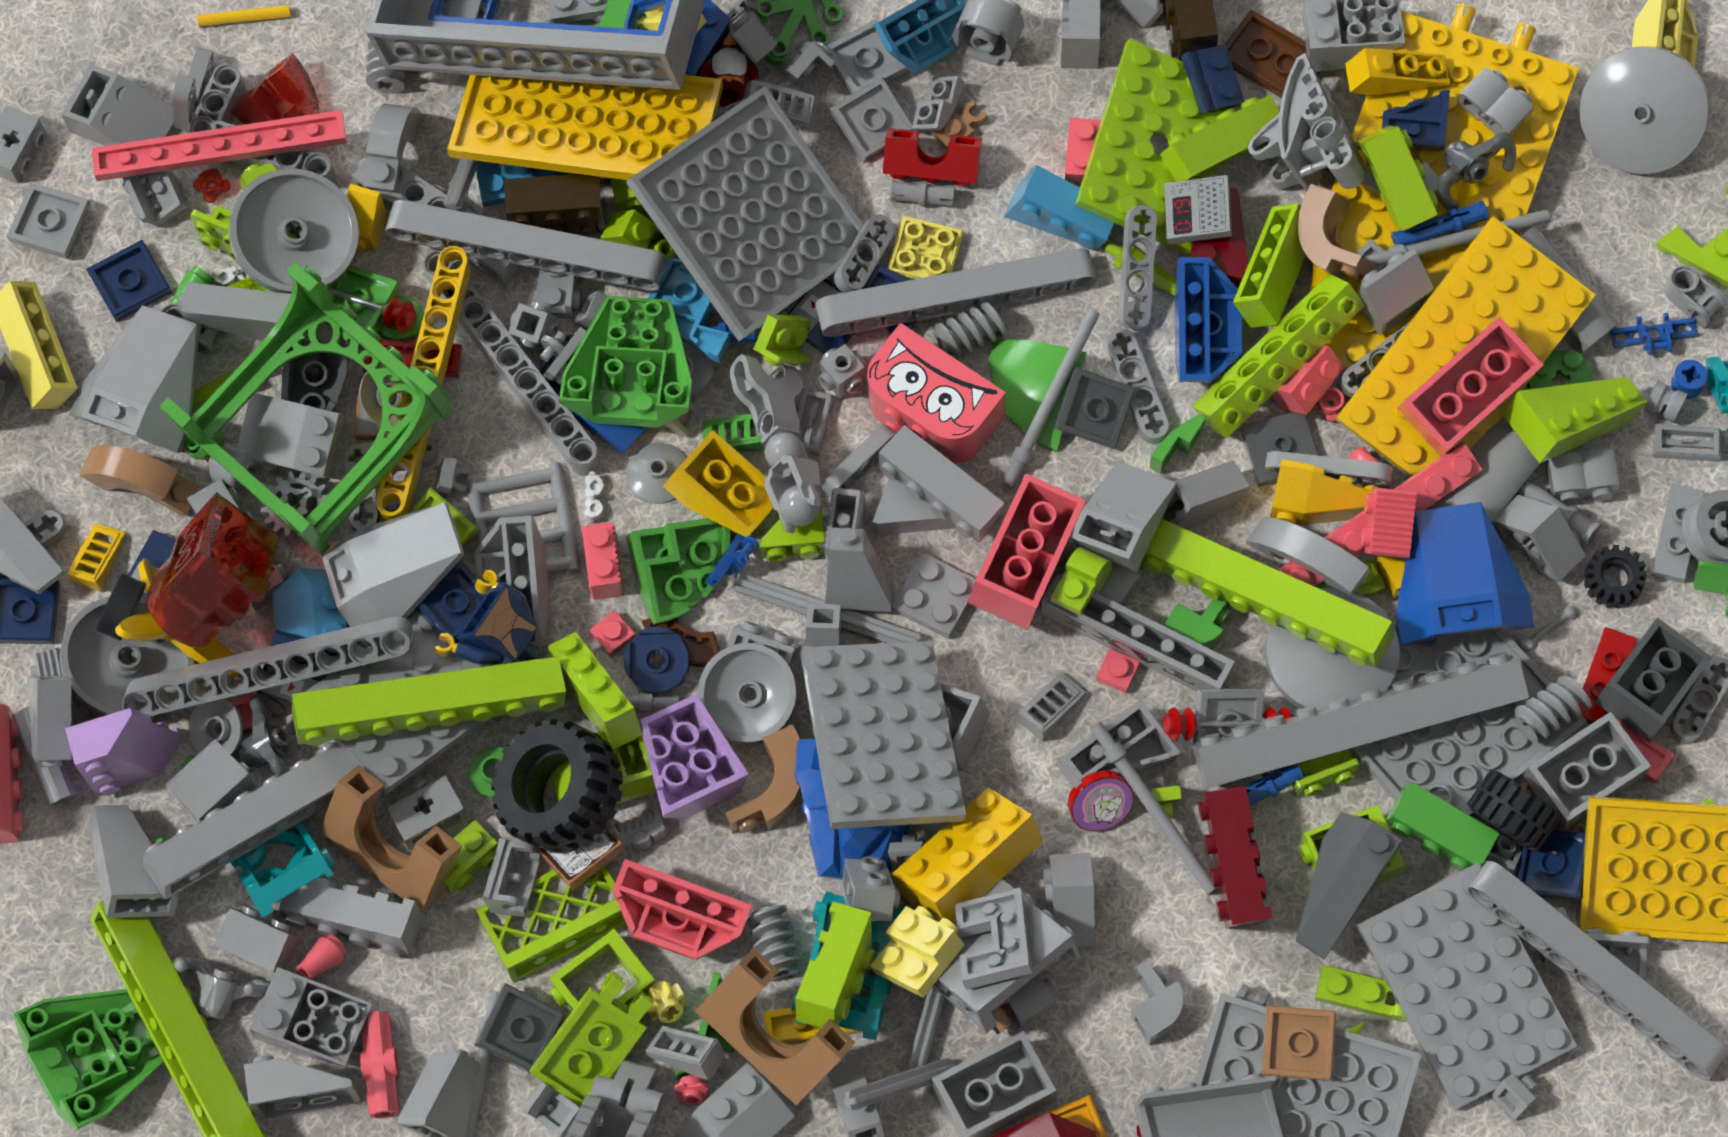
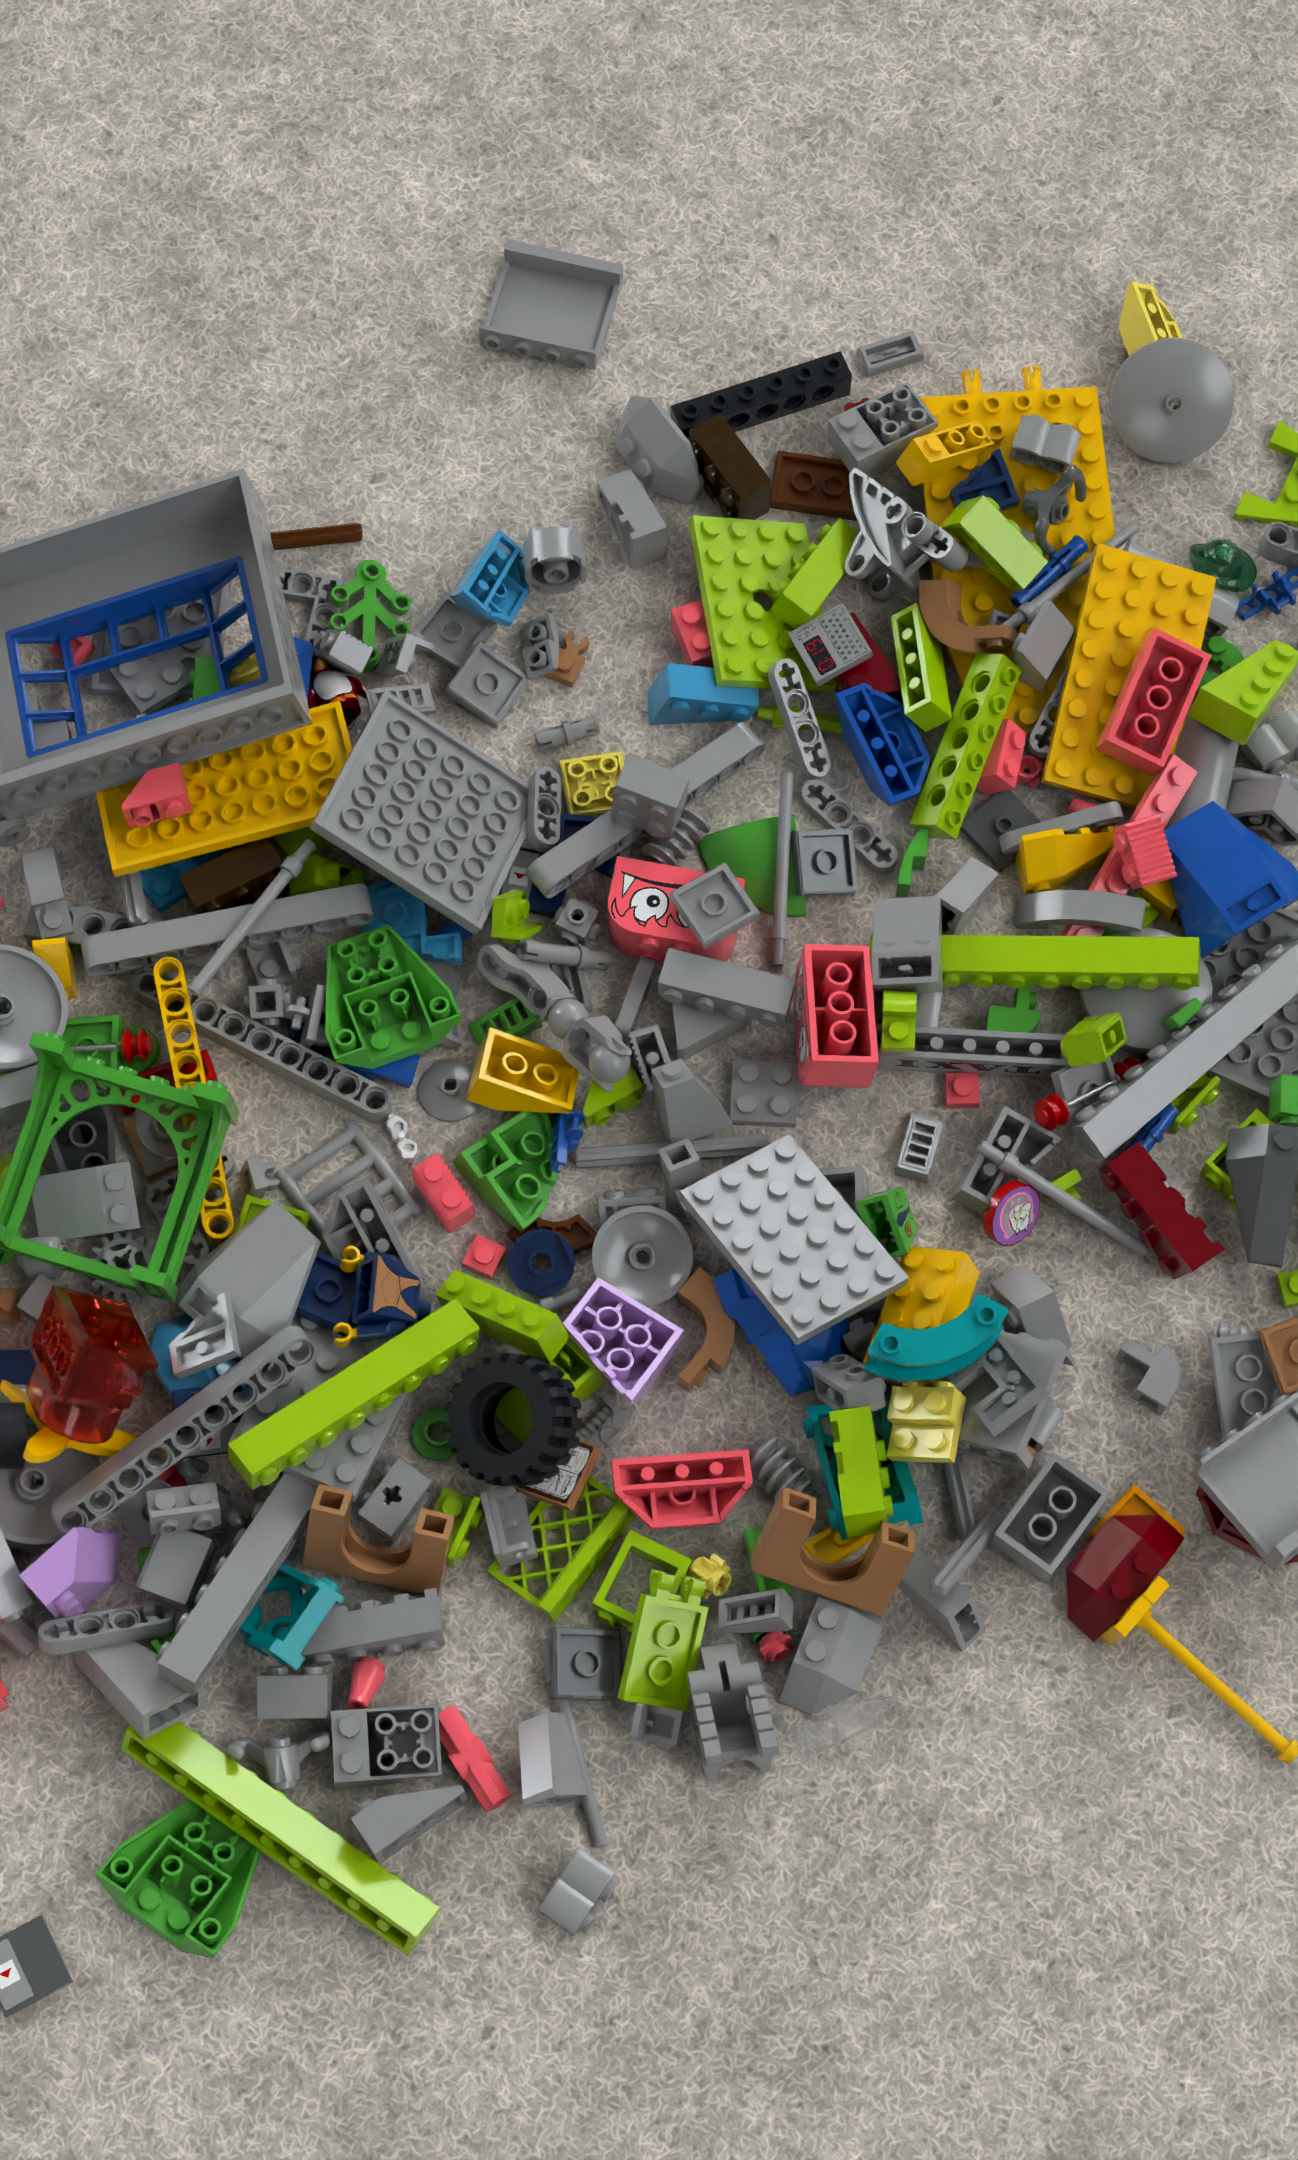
camera: 30 degrees left, 0 degrees up
(126, 805) = (108, 1632): none -> light grey beam
(236, 735) = (183, 1508): none -> light grey bracket
(326, 599) = (206, 1341): none -> light grey wing
(517, 100) = (157, 796): none -> coral slope
(589, 309) = (313, 966): light grey tile -> none
(604, 213) = (289, 869): none -> light grey bar
(823, 398) = (574, 956): none -> light grey pin
(905, 158) = (587, 692): red arch -> none
(952, 888) = (937, 1351): none -> teal fence
(954, 281) = (649, 797): none -> light grey brick
(962, 404) = (714, 905): none -> light grey plate
(982, 757) = (889, 1218): none -> bright green torso
(1213, 79) = (781, 524): dark blue plate -> none
(1253, 674) = (1094, 1039): none -> lime brick
(1348, 687) = (1183, 1014): none -> bright green tile
(1618, 286) = (1226, 561): none -> clear green hat

